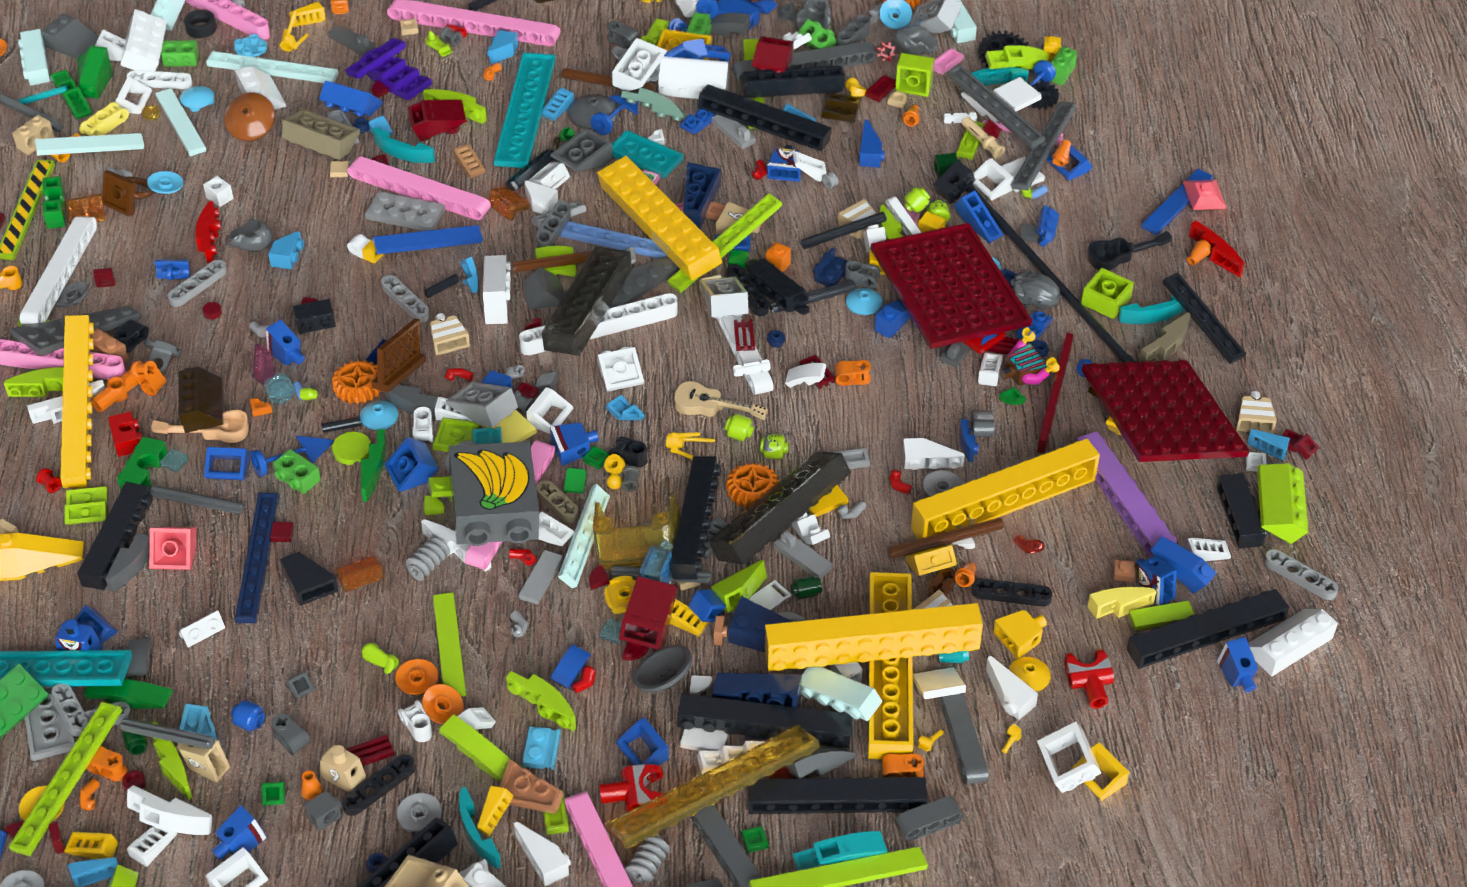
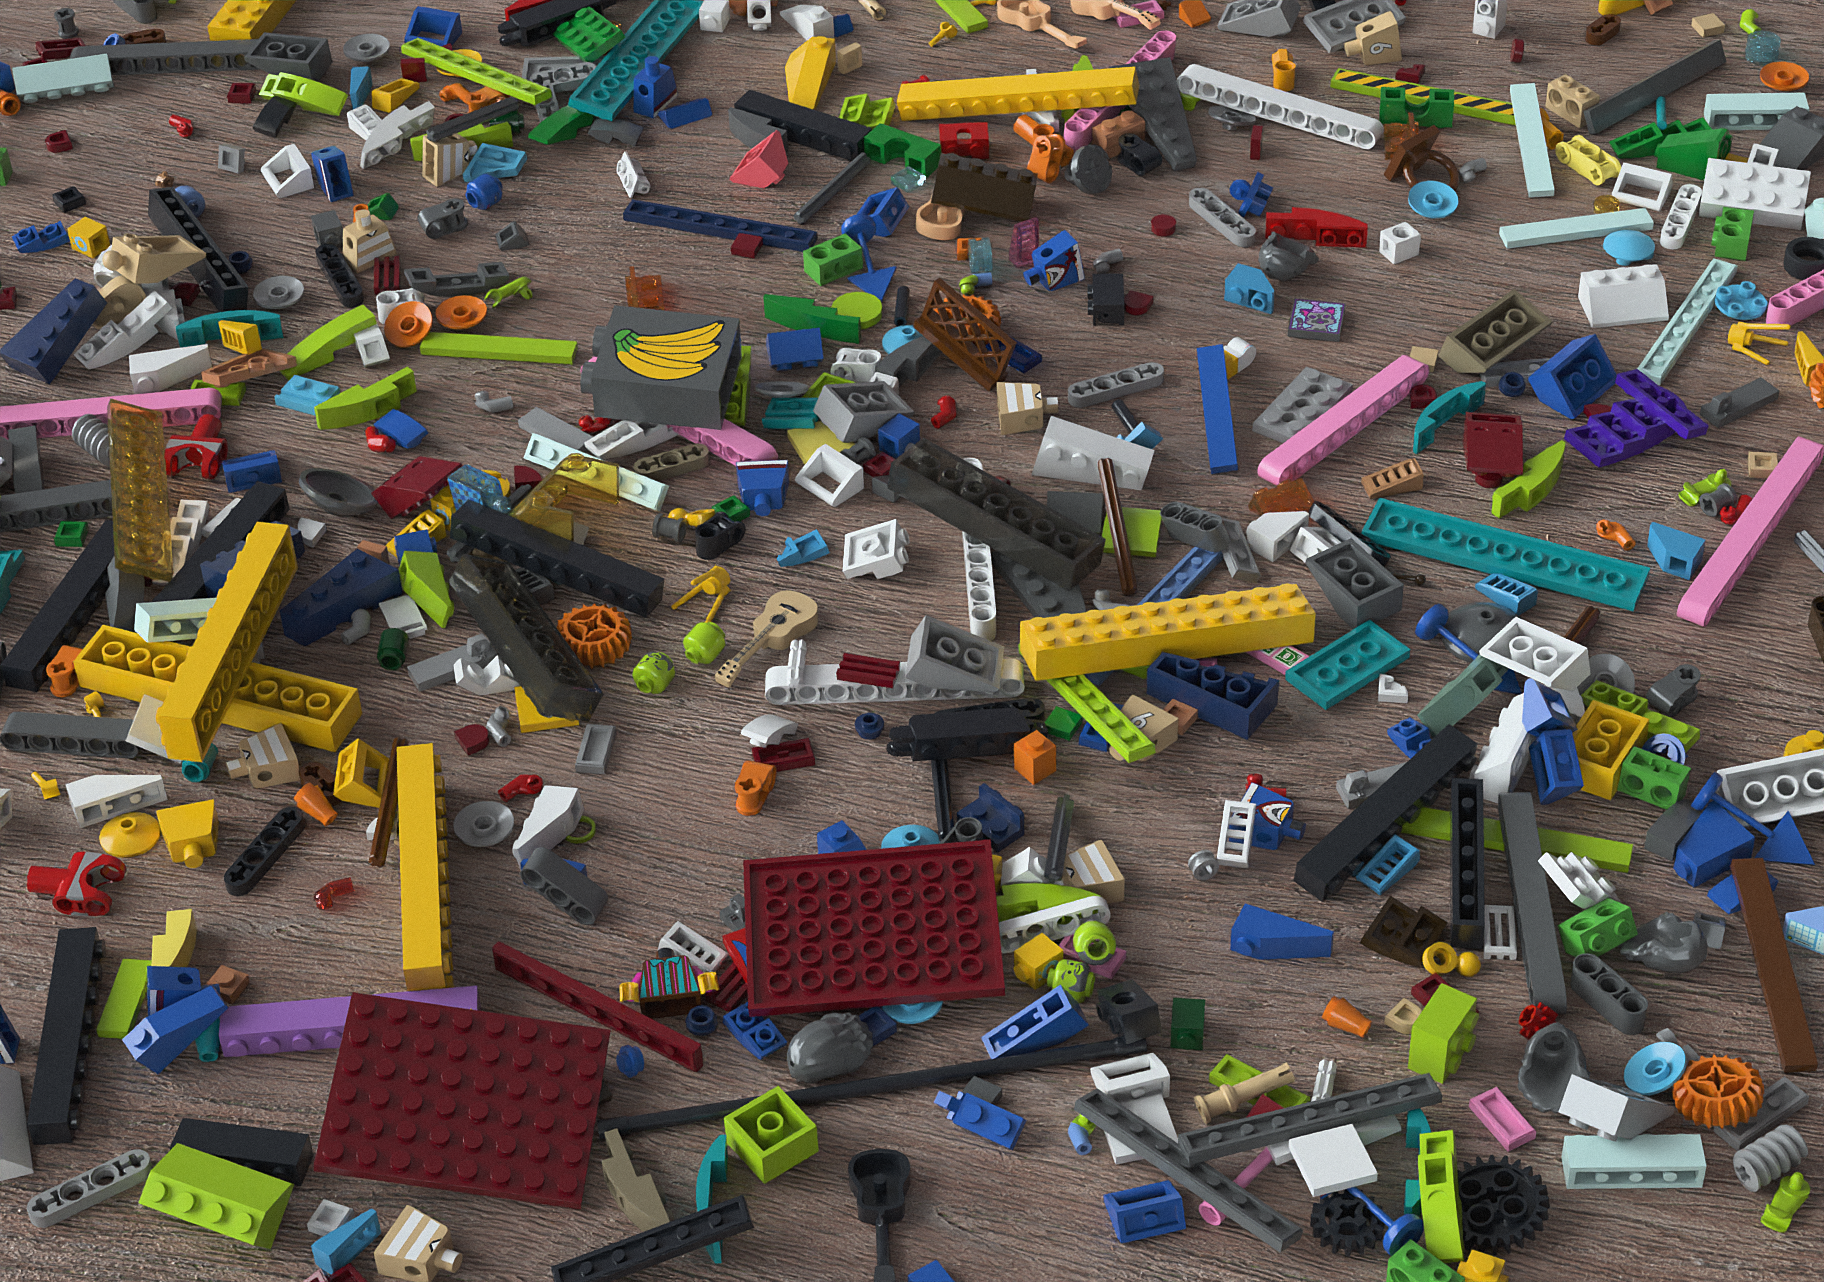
camera: 110 degrees right, 5 degrees down
(252, 124) = (1553, 275): dark orange dish -> none
(307, 578) = (660, 249): black slope -> none
(309, 219) = (1316, 320): none -> tile
(370, 693) = (451, 285): none -> dark grey slope
(380, 123) = (1502, 402): dark azure slope -> none
(566, 133) = (1423, 586): green cylinder -> none
(575, 480) = (697, 484): green slope -> none
(773, 54) = (1510, 818): dark red slope -> none
(867, 521) = (472, 738): none -> dark red tile
(1012, 397) = (621, 962): green tile -> none
(1061, 154) = (1145, 1181): orange cone -> none
(1197, 546) = (202, 1069): white slope -> none

